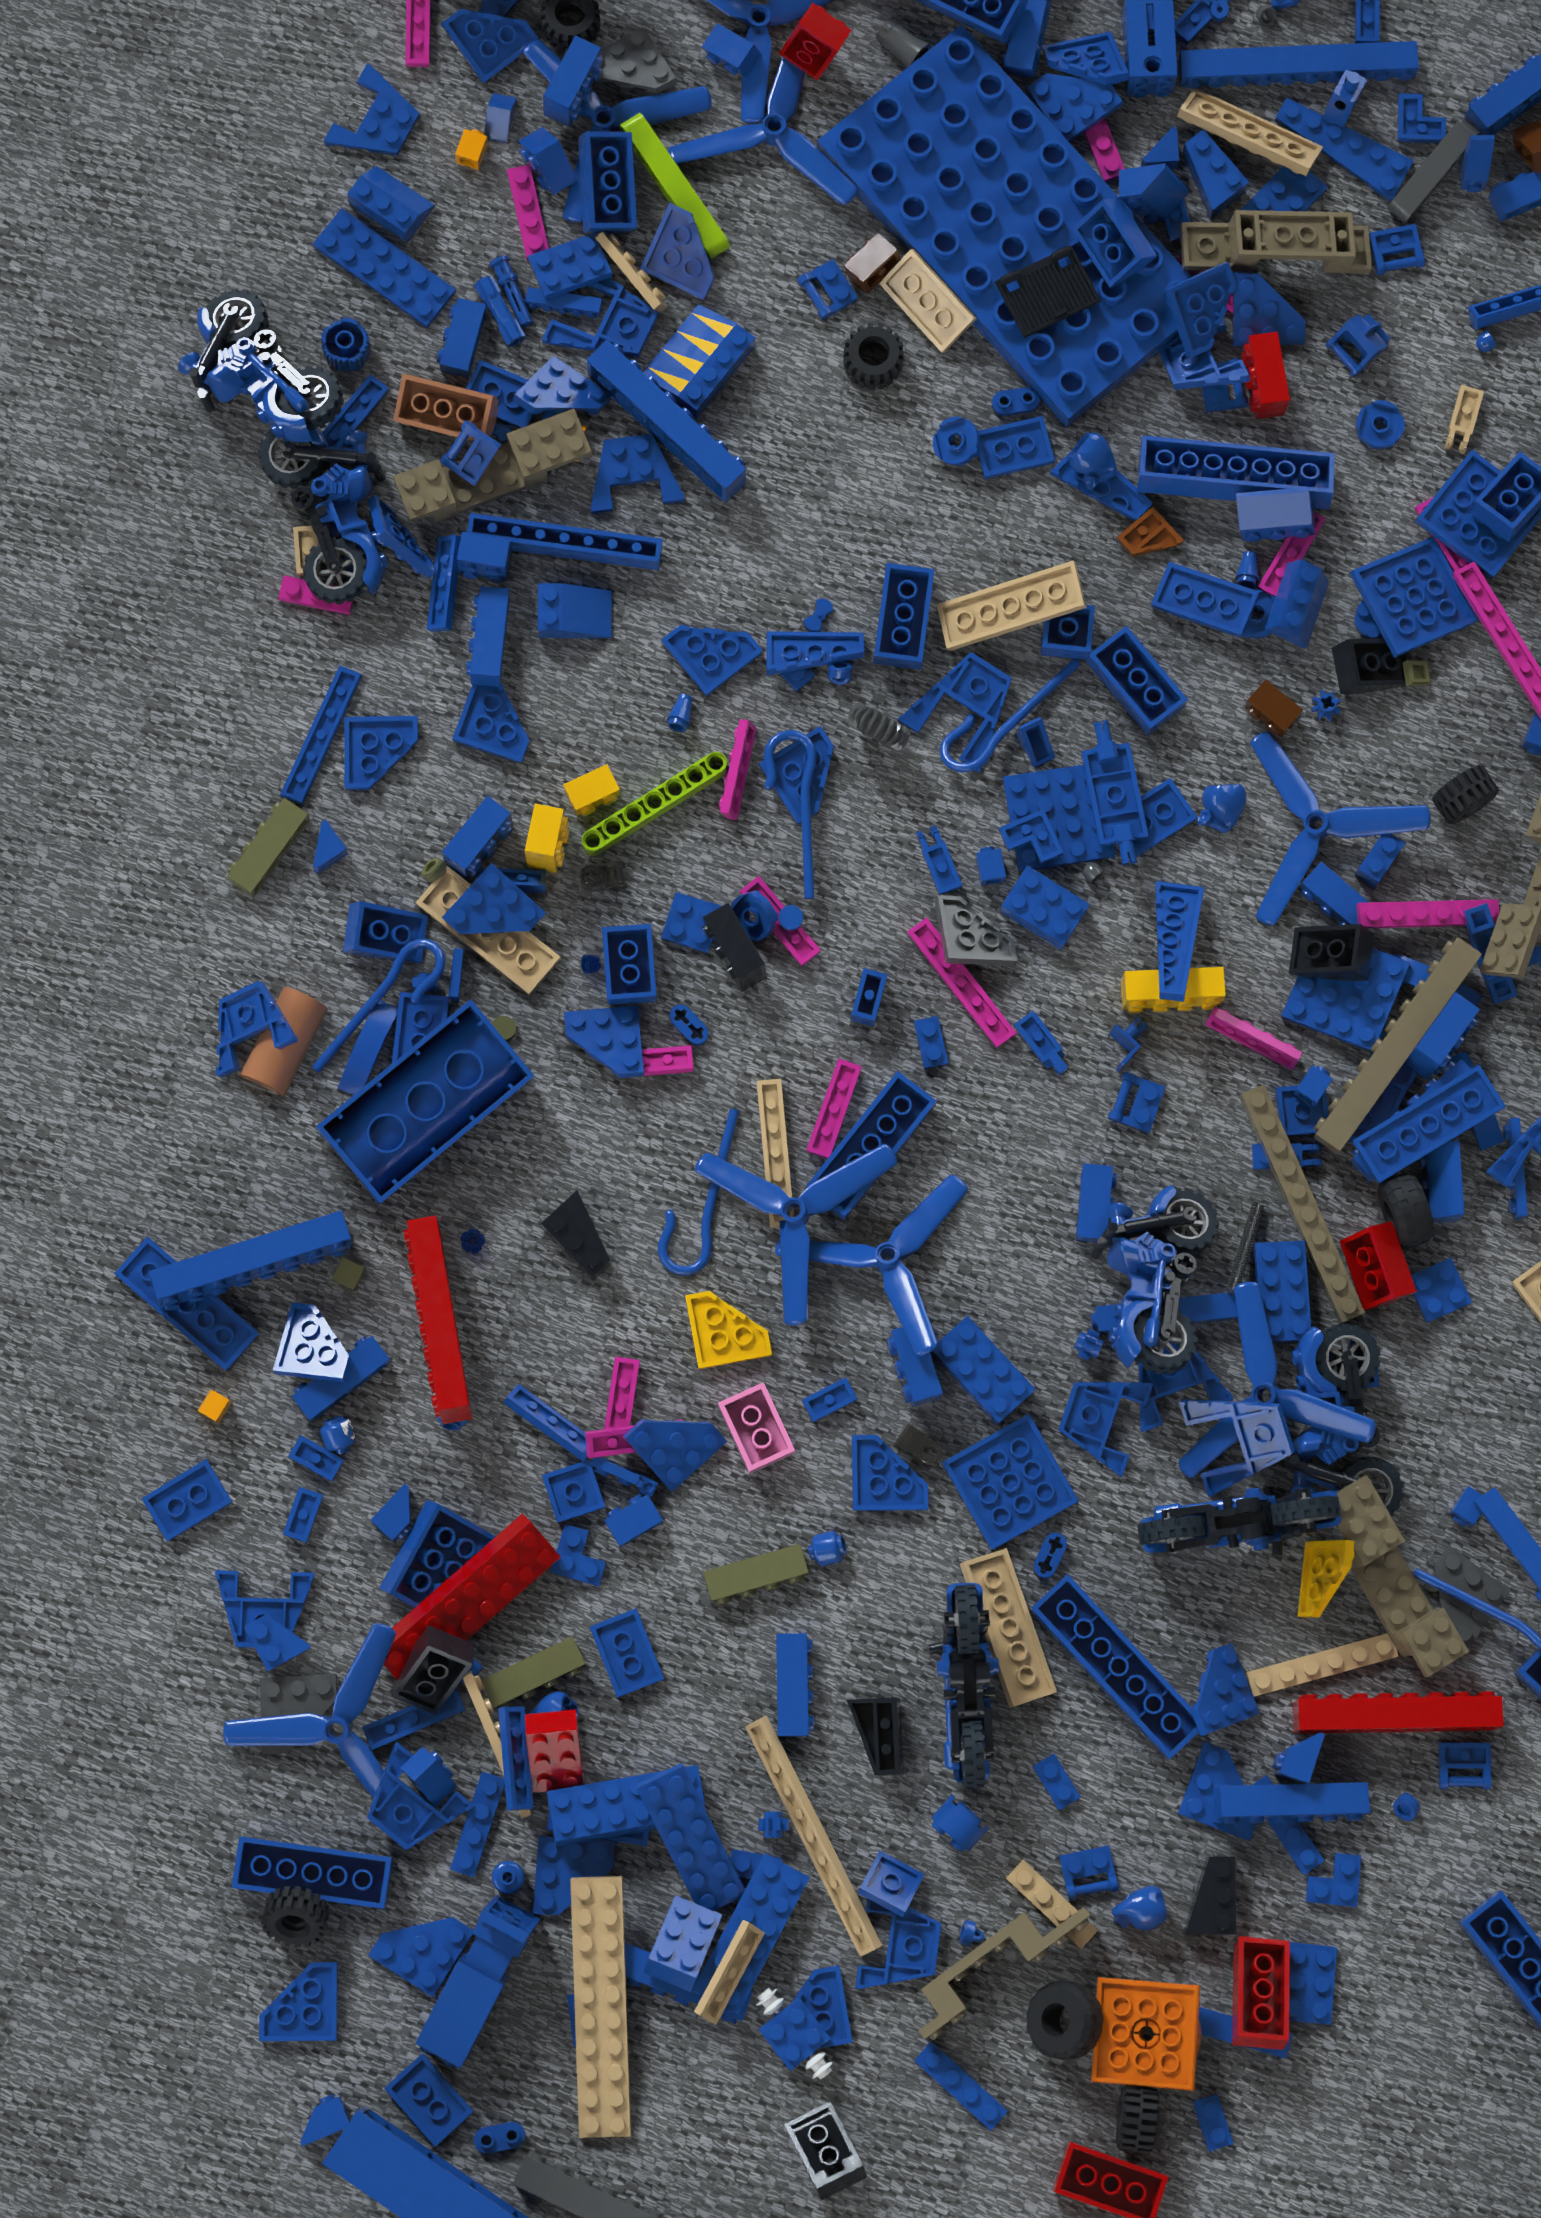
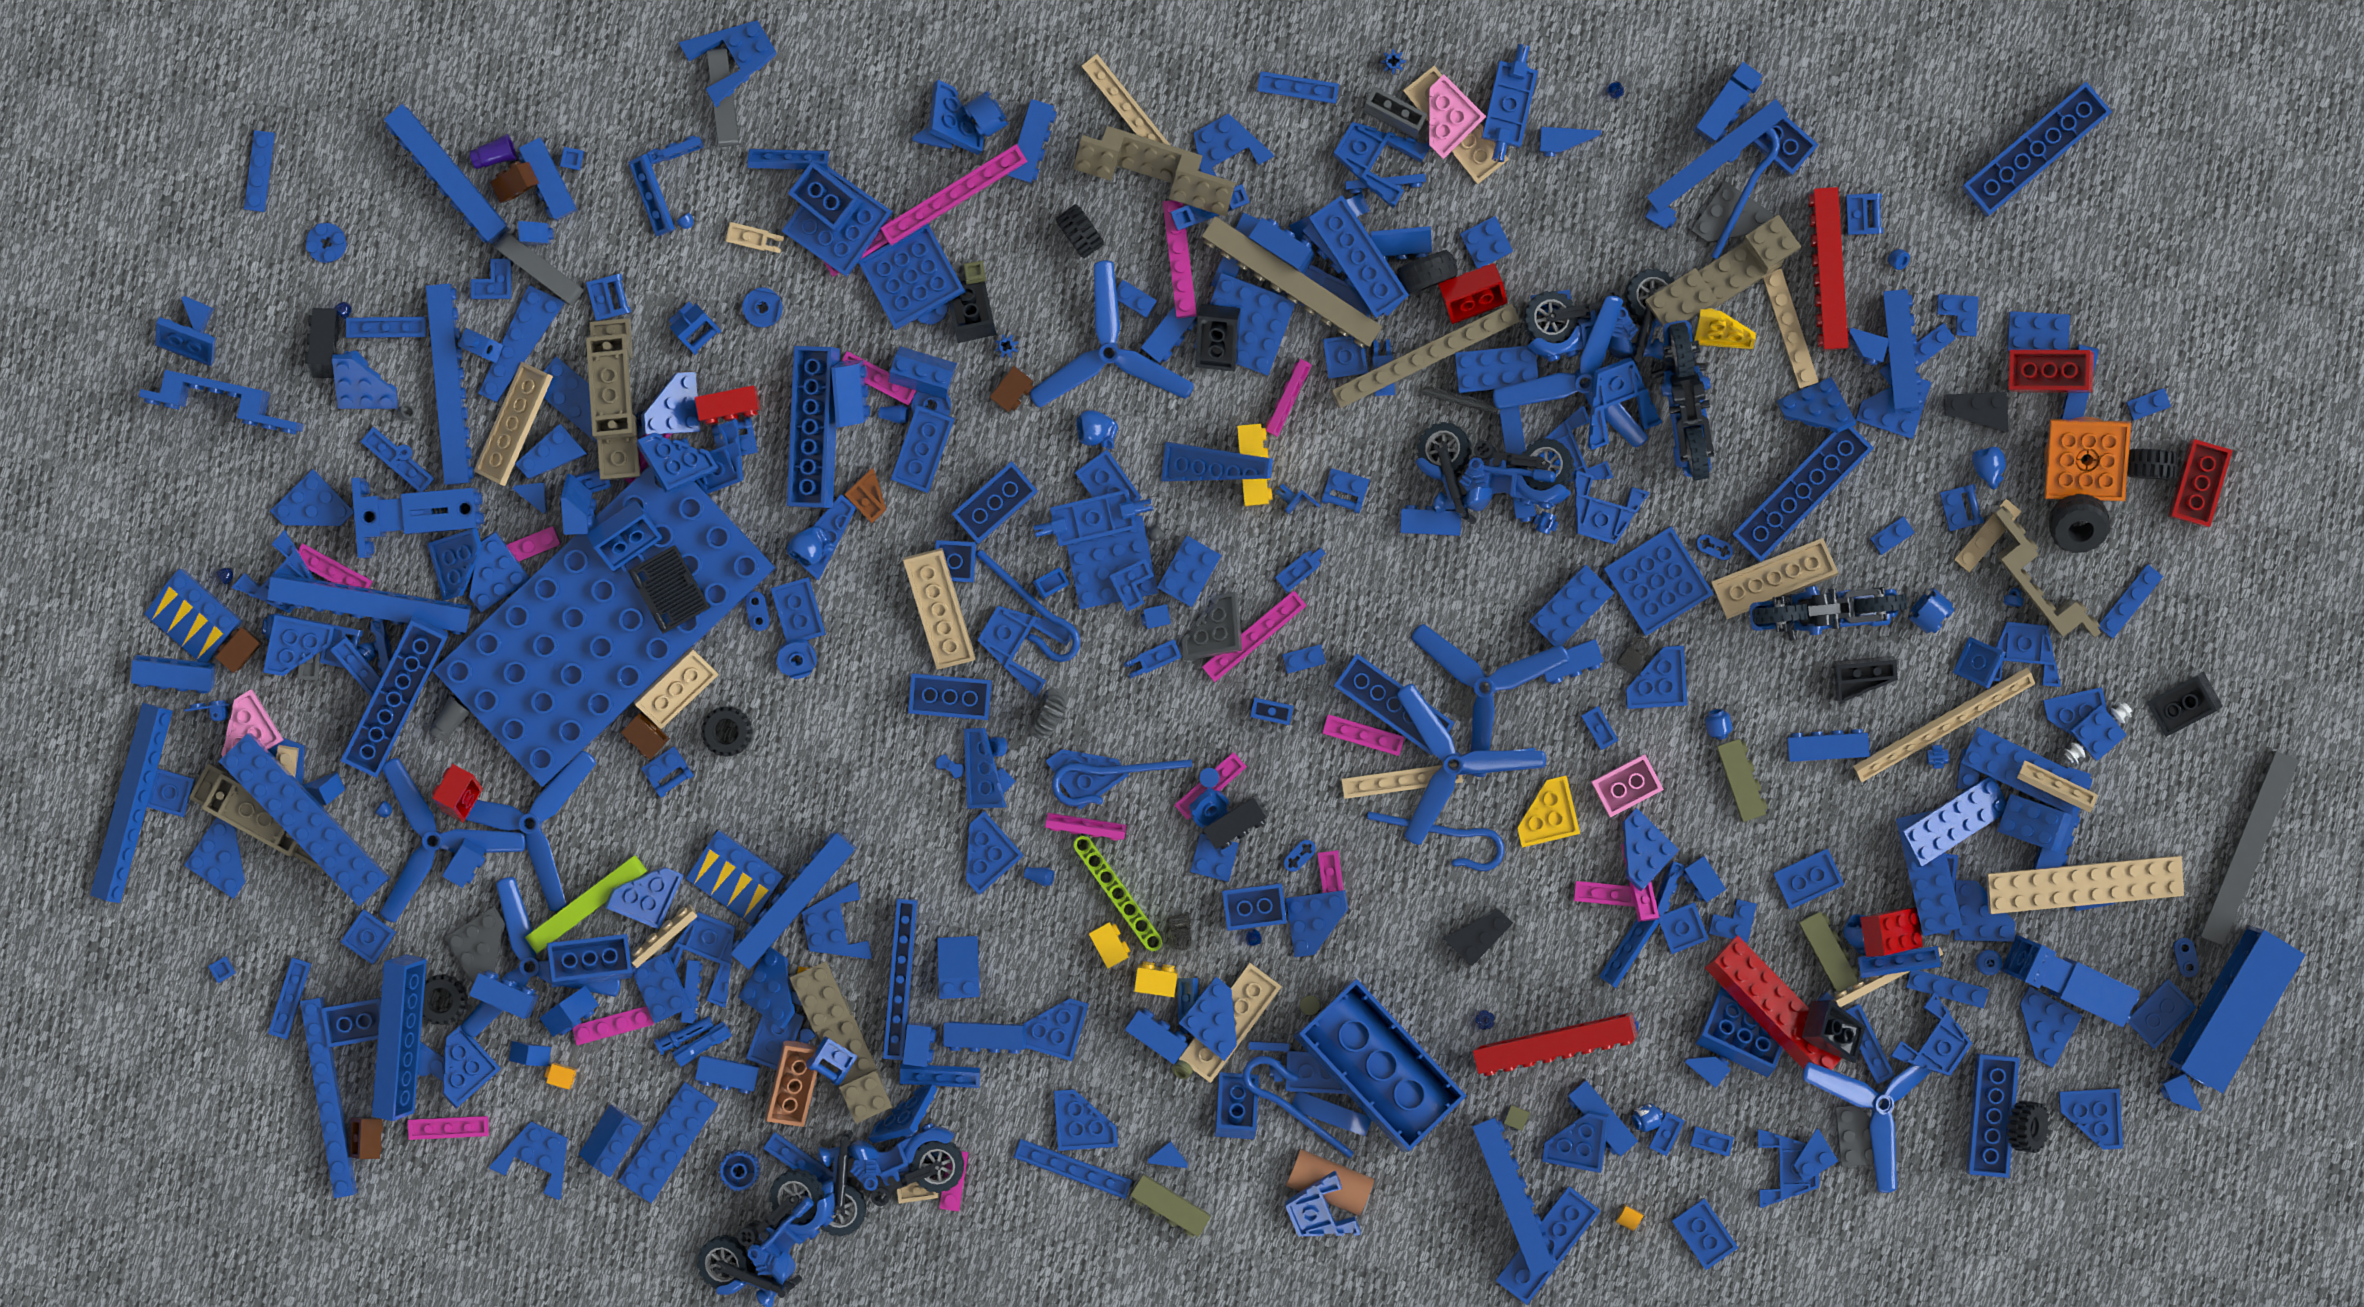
camera: 90 degrees left, 10 degrees up
(429, 1776) = (1914, 1028): blue brick -> none
(1313, 1085) = (1327, 348): blue brick -> none

